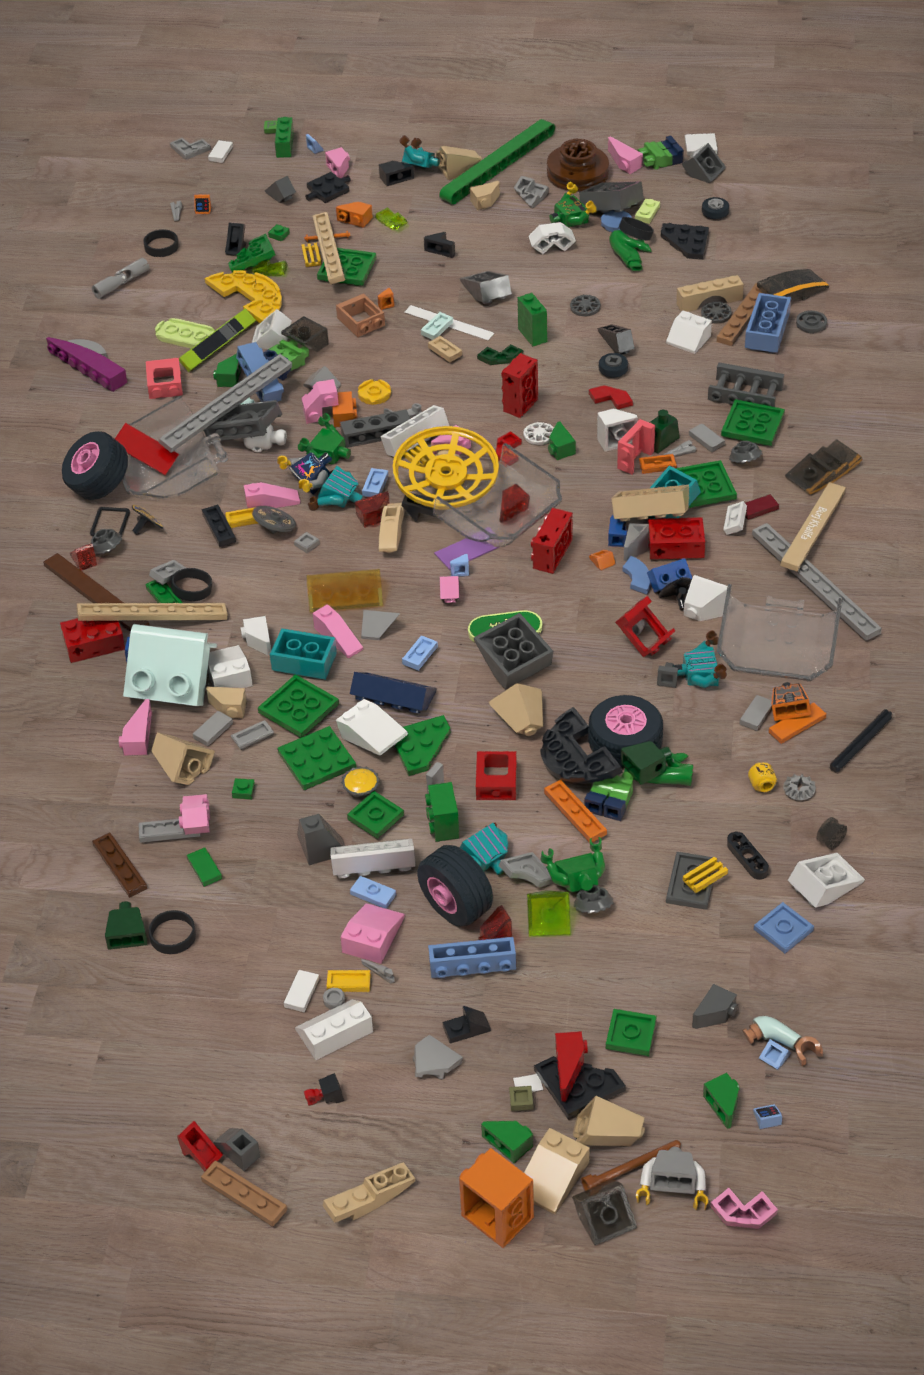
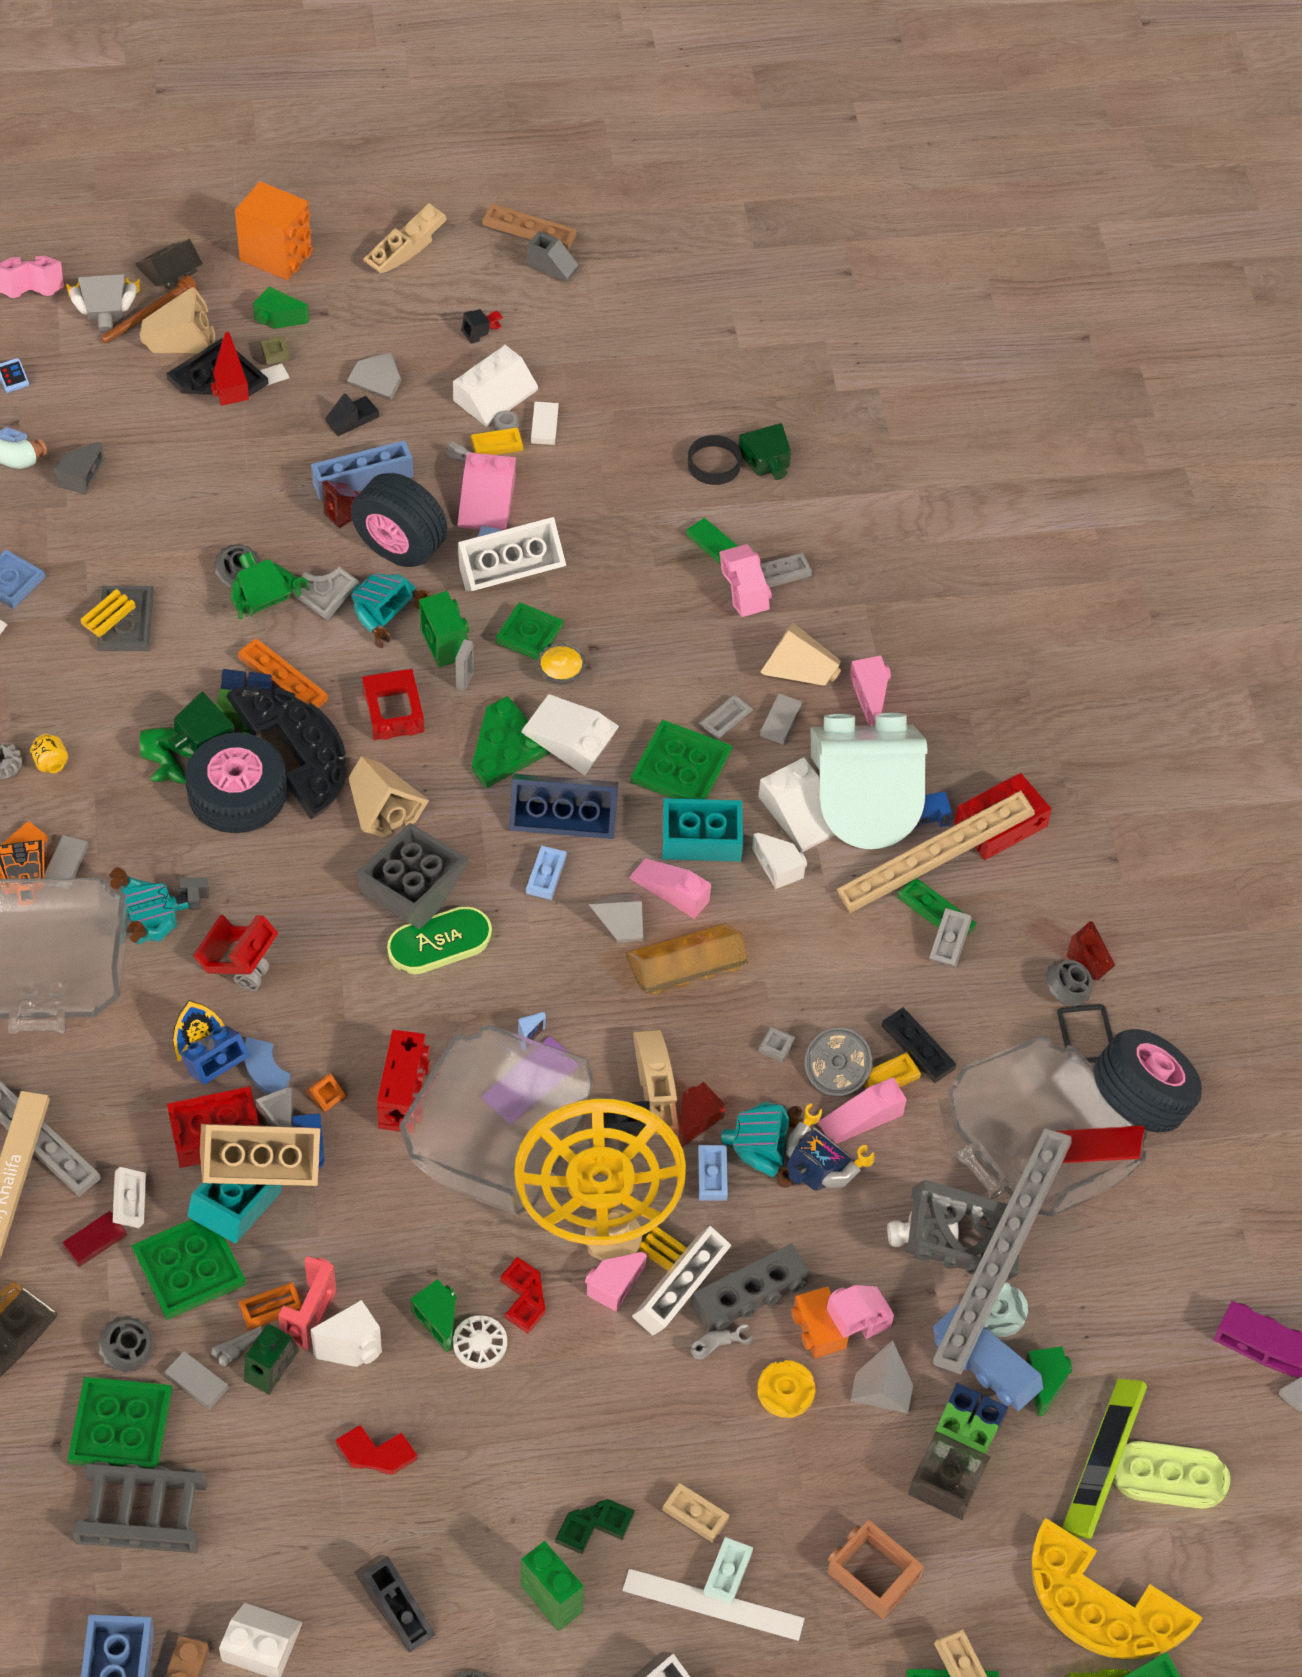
camera: 160 degrees right, 10 degrees up
(85, 585) = (1042, 900): reddish brown tile -> none
(119, 865) = (813, 529): reddish brown tile -> none
(143, 518) = (1029, 1024): black shield -> none
(164, 368) = (1161, 1358): coral window -> none
(191, 595) = (908, 902): black tyre -> none
(198, 1145) = (591, 250): red slope -> none
(228, 700) = (775, 750): tan slope -> none
(243, 788) = (707, 644): green plate -> none
(269, 330) = (1017, 1492): white slope -> none
(316, 758) = (632, 700): green plate -> none
(317, 838) = (585, 576): dark grey slope -> none
(327, 441) = (816, 1227): green torso -> none
(386, 299) = (842, 1626): orange slope -> none
(449, 588) = (537, 986): bright pink slope -> none
(513, 502) = (480, 1146): clear red slope -> none
(520, 385) = (530, 1391): red piece -> none
(548, 913) = (285, 542): clear neon green slope -> none
(556, 1169) = (228, 291): tan slope -> none
(613, 365) = (385, 1537): black wheel -> none
(631, 1032) = (169, 432): green plate -> none
(704, 599) = (151, 1014): white slope -> none
(722, 1097) = (61, 380): green slope -> none
(747, 863) = (56, 648): black beam -> none

